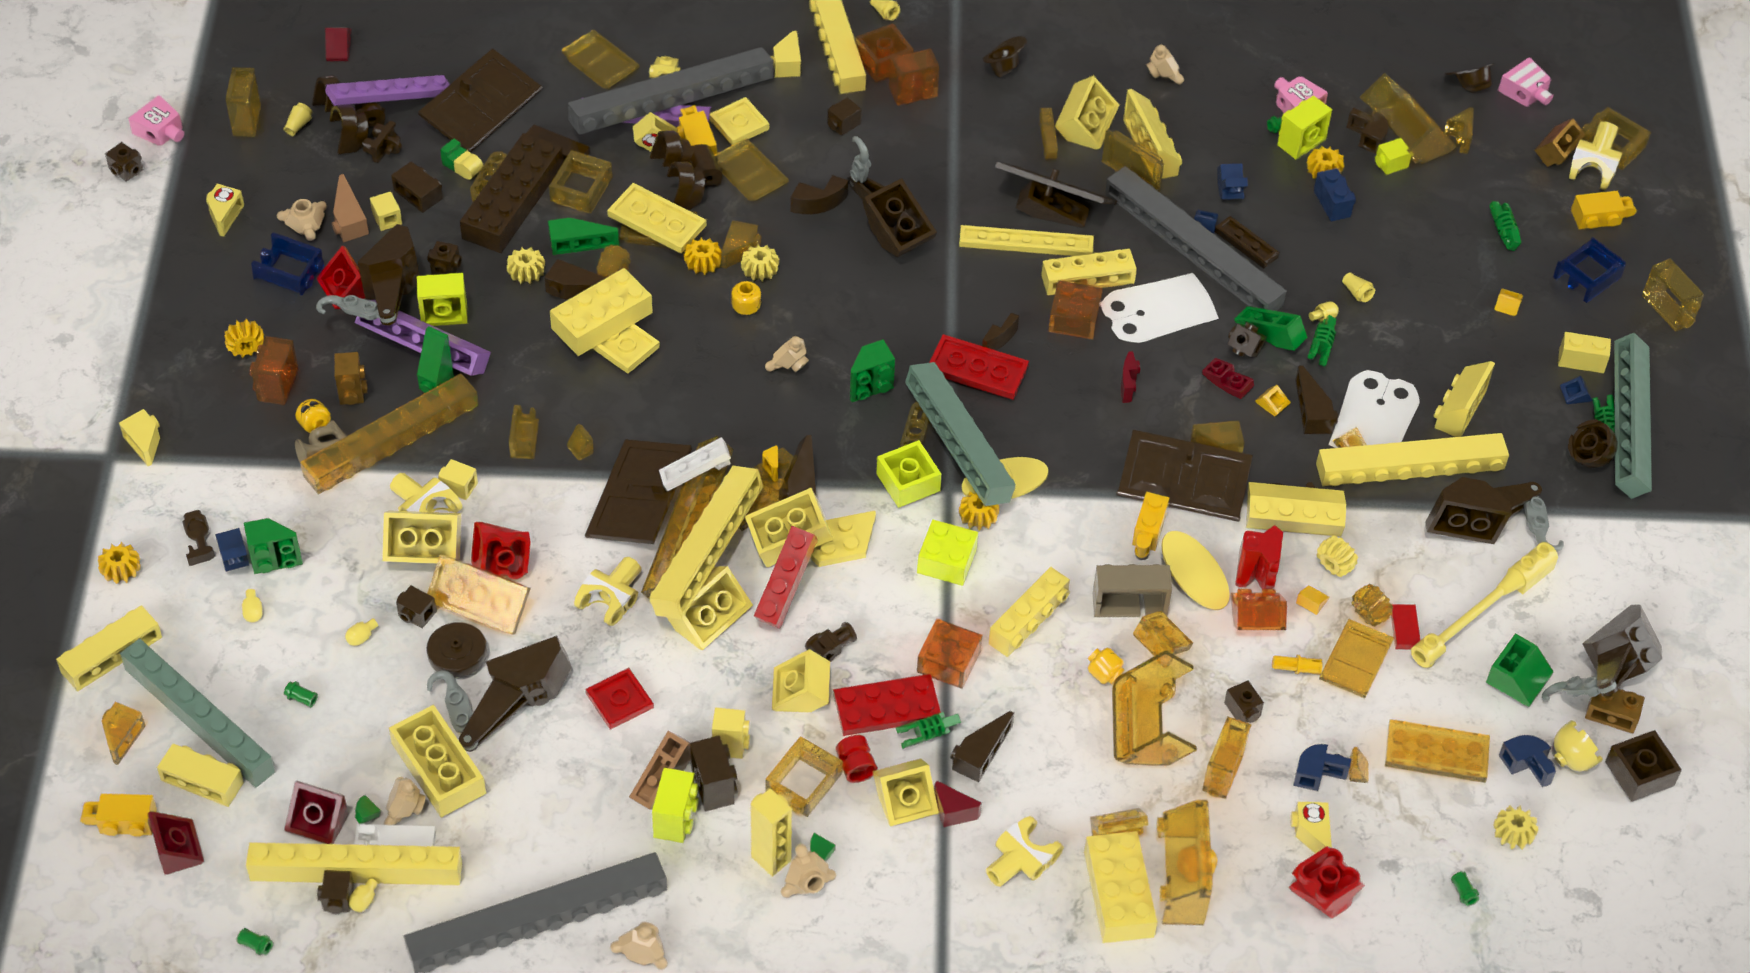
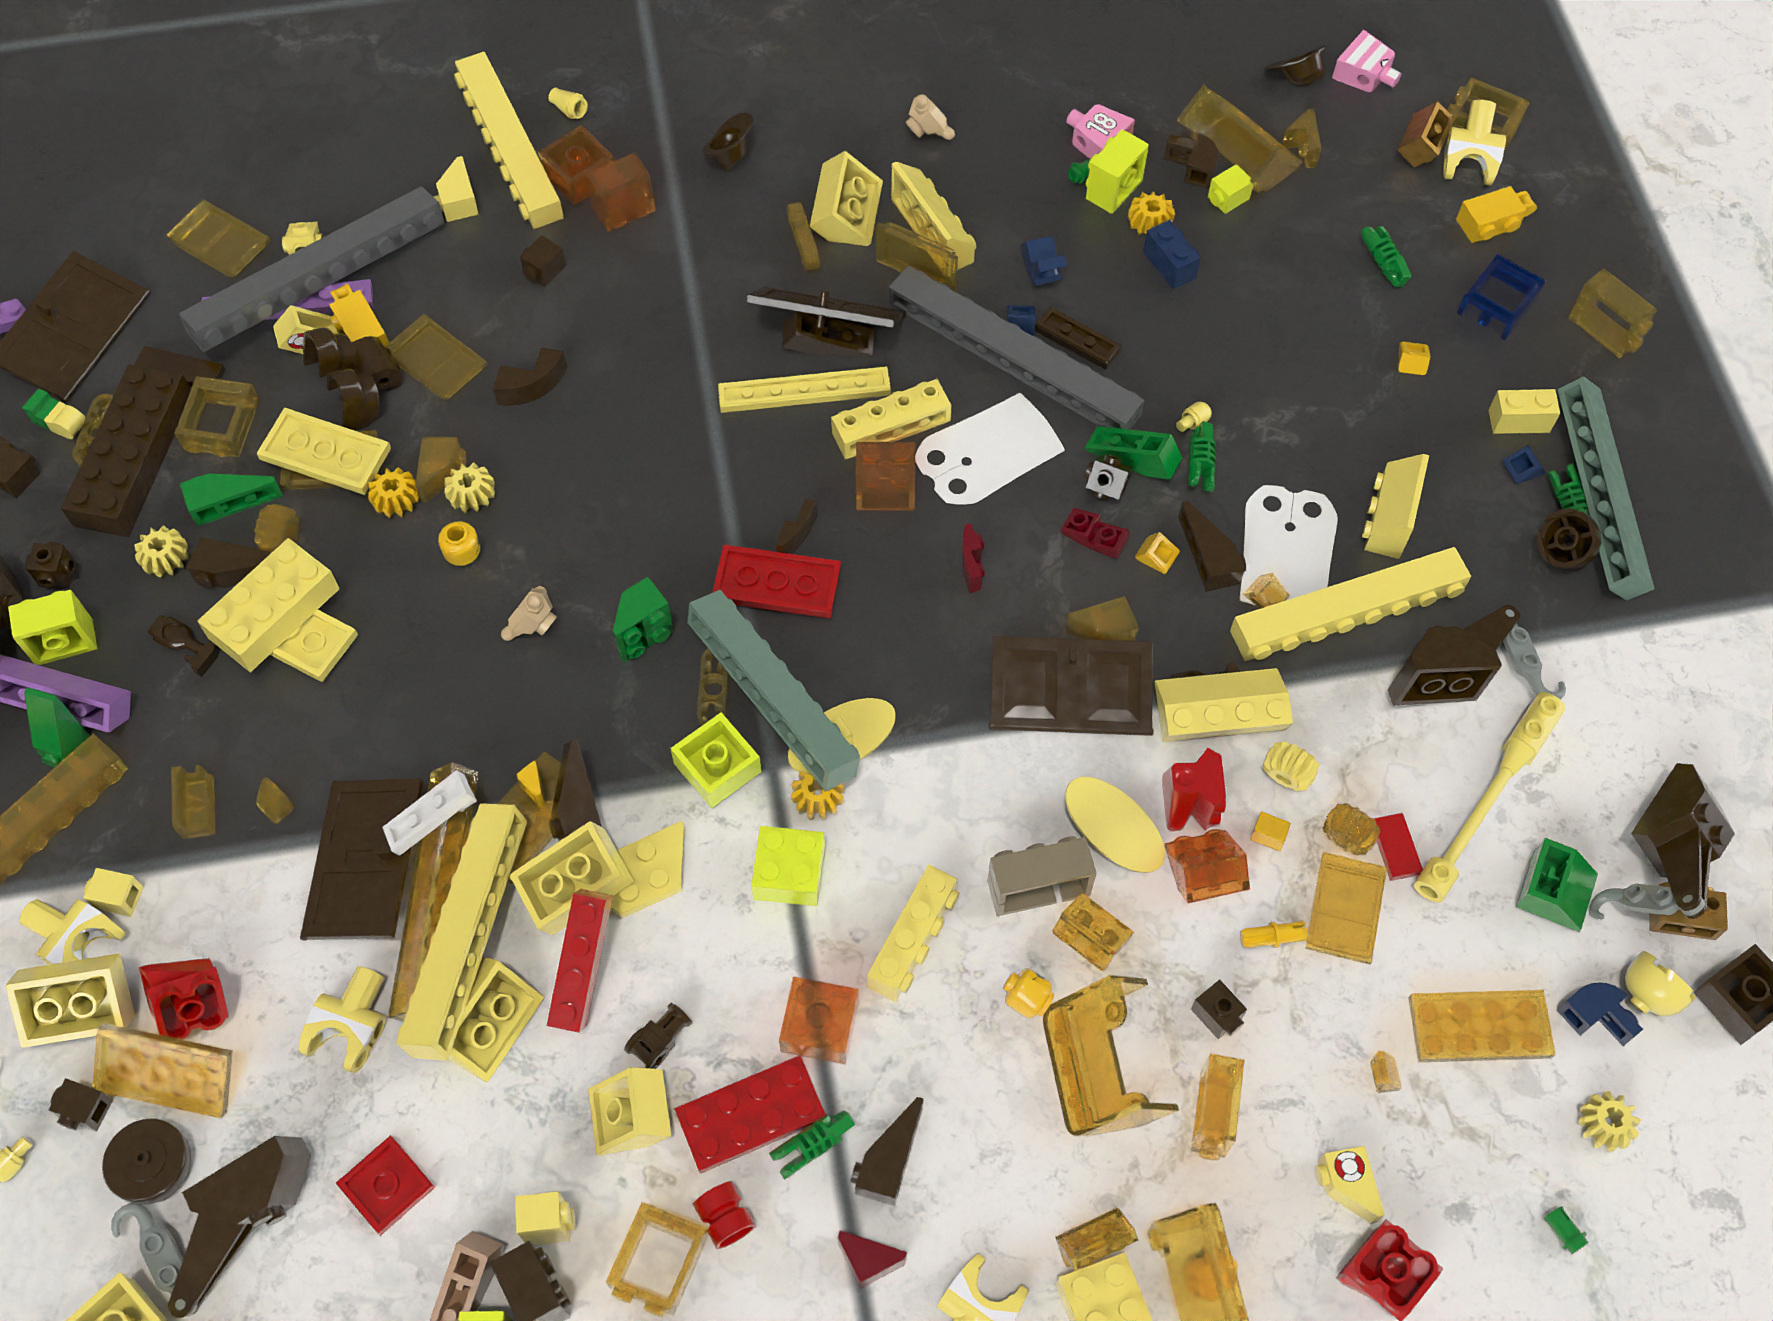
camera: 10 degrees left, 10 degrees up
(528, 324) = (178, 636): none -> dark brown piece
(739, 121) = (410, 292): light yellow plate -> none
(890, 209) = (623, 382): dark brown slope -> none
(906, 791) = (800, 1250): light yellow slope -> none
(1149, 523) = (1042, 768): yellow brick -> none
(1317, 762) = (1329, 1086): dark blue brick -> none
(1360, 288) = (1230, 375): light yellow cone -> none

